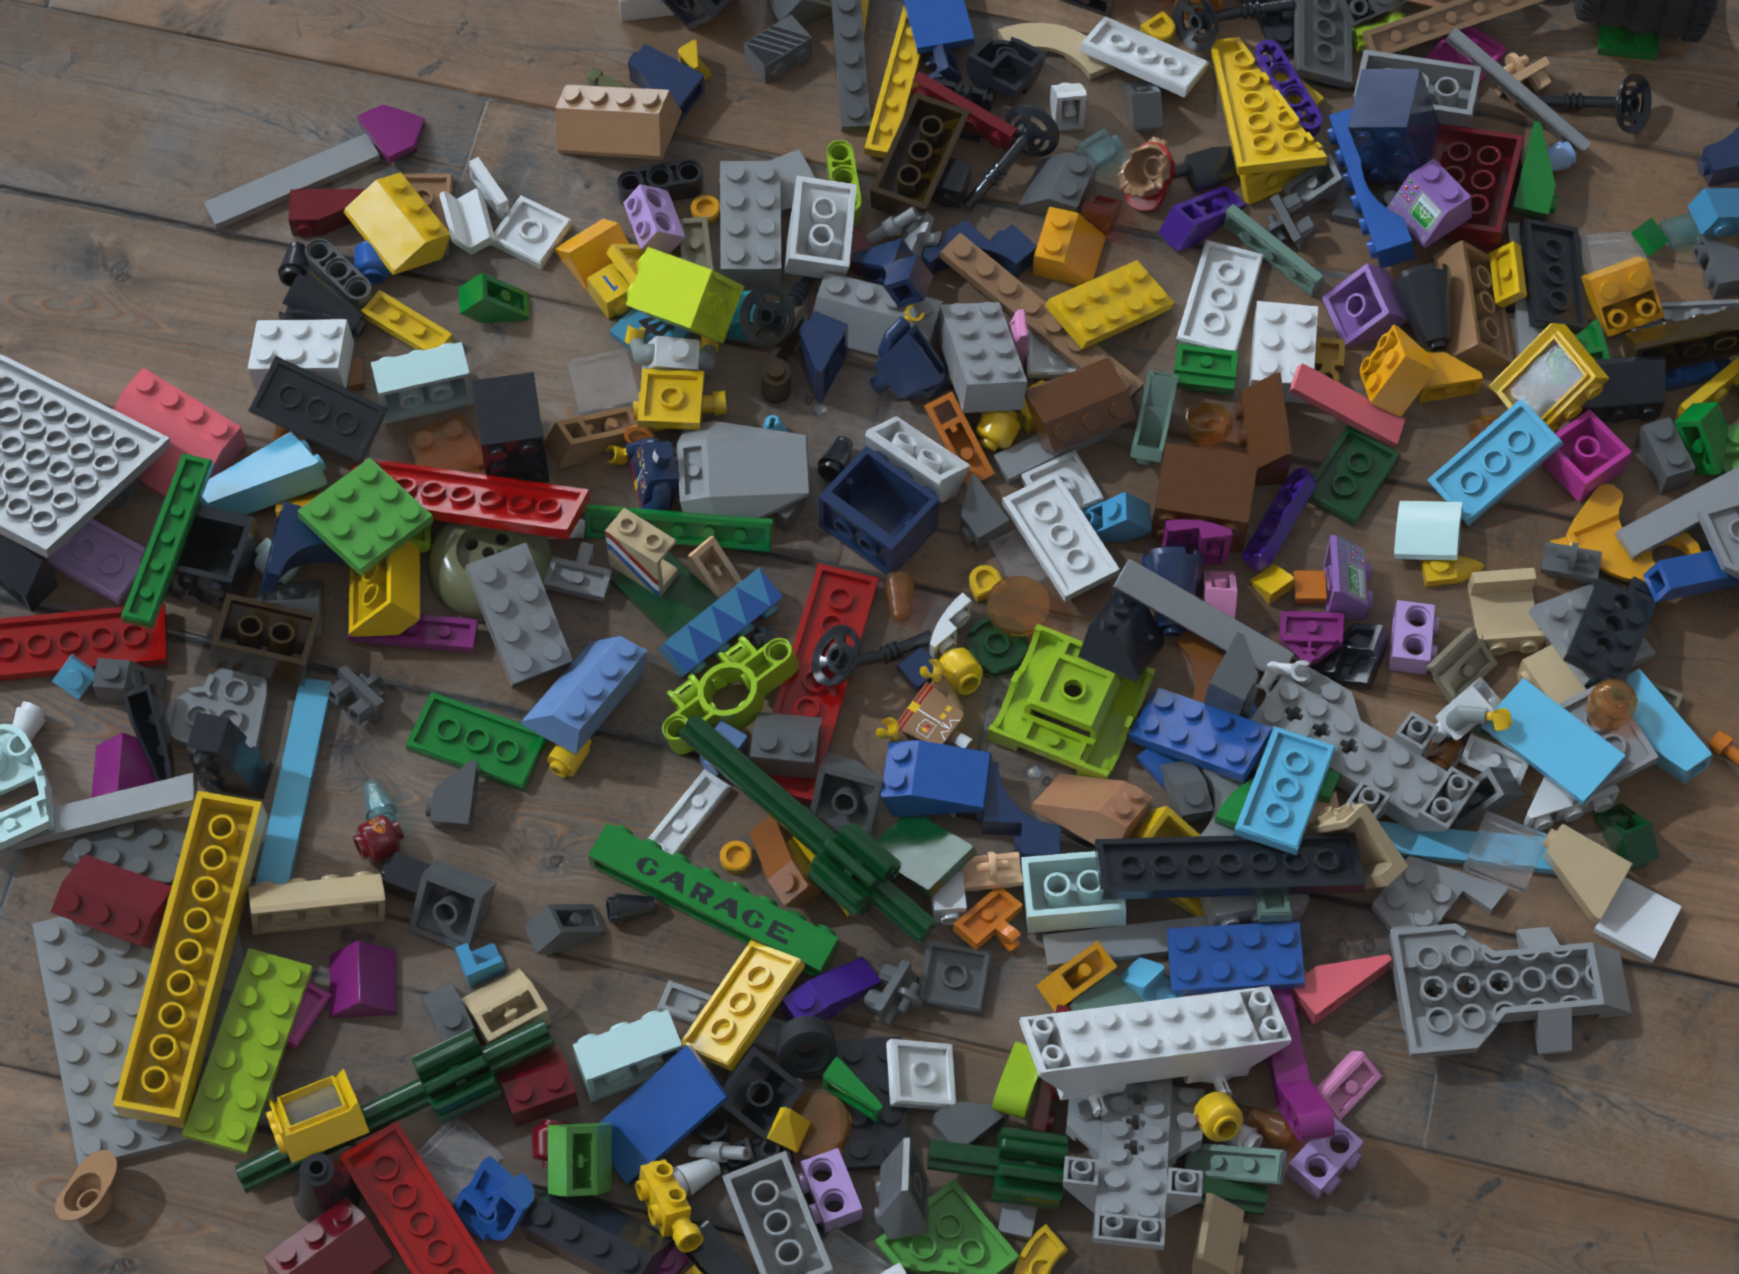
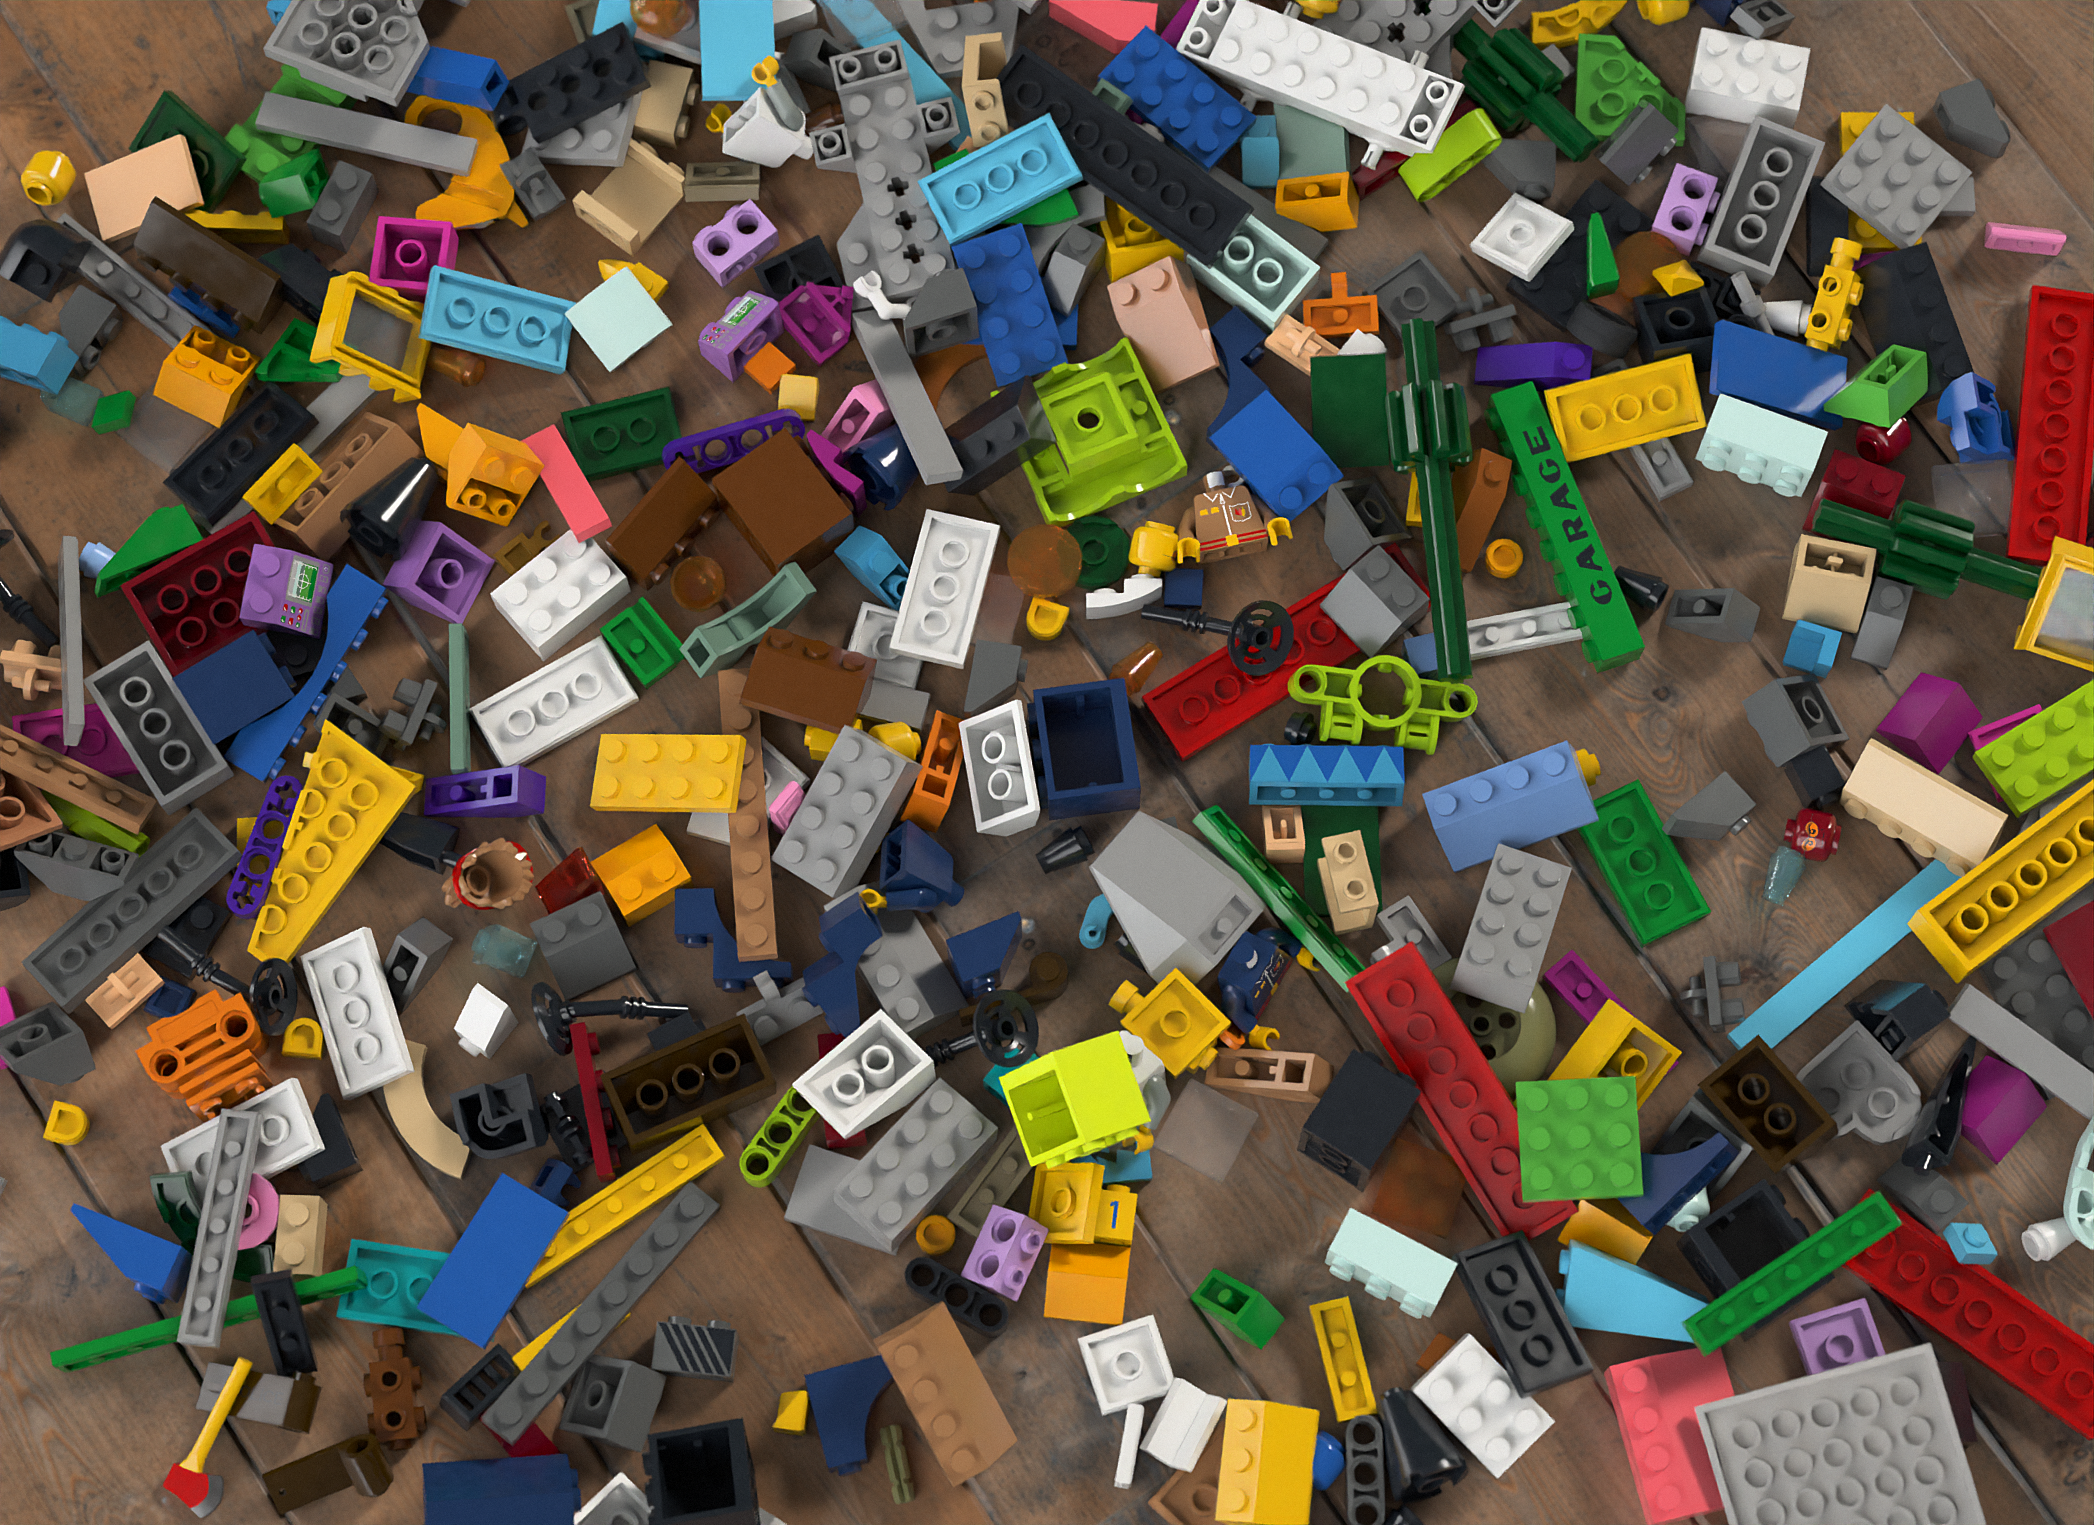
camera: 135 degrees left, 10 degrees up
(892, 225) = (784, 1040): light grey bar -> none

